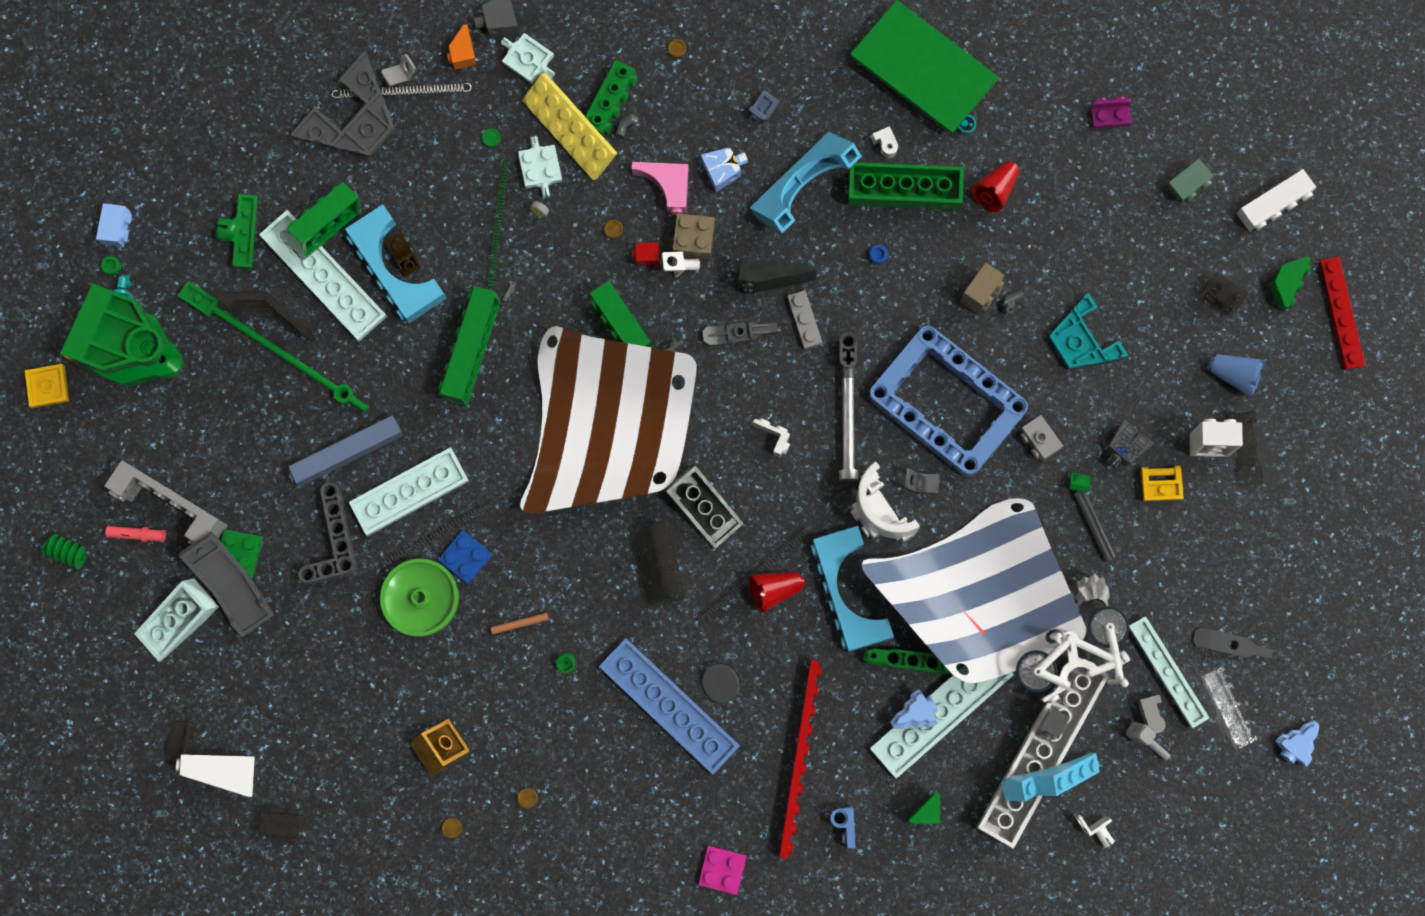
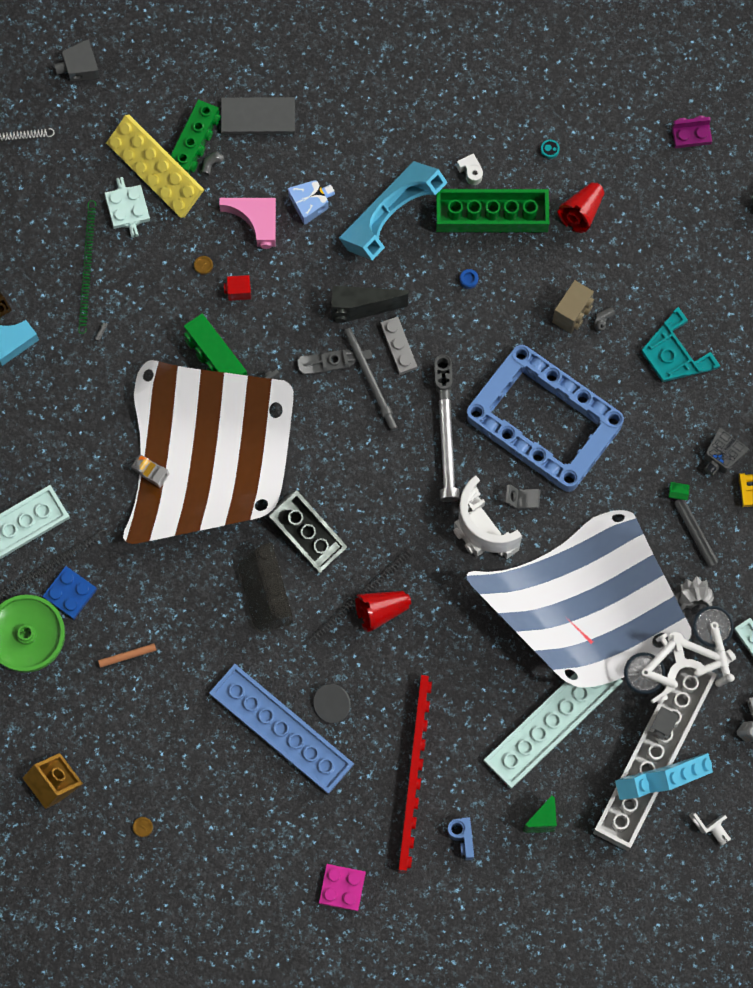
camera: 10 degrees left, 5 degrees down
(451, 828) = (67, 860): pearl gold piece -> none
(461, 50) = (43, 96): orange slope -> none
(470, 346) = (65, 385): green brick -> none
(491, 137) = (77, 181): green piece -> none
(527, 58) = (109, 101): light aqua plate -> none
(539, 209) = (128, 248): light grey tile -> none
(550, 437) = (150, 470): none -> light grey leg
(565, 662) = (175, 691): green tile -> none
(675, 78) = (258, 115): none -> dark grey tile
(677, 48) = (258, 86): pearl gold piece -> none
(679, 263) = (271, 296): white bracket -> none
(694, 236) = (284, 268): dark tan brick -> none
(764, 106) = (348, 139): sand blue bracket -> none
(782, 445) = (382, 467): white bracket -> none
(788, 385) = (385, 411): none -> dark grey bar
(856, 631) = (464, 645): medium azure arch -> none
(882, 660) = (512, 676): green piece -> none
(916, 712) = (528, 721): light blue rock -> none
(924, 67) = (505, 94): green piece -> none
(1040, 438) = (638, 450): light grey brick -> none

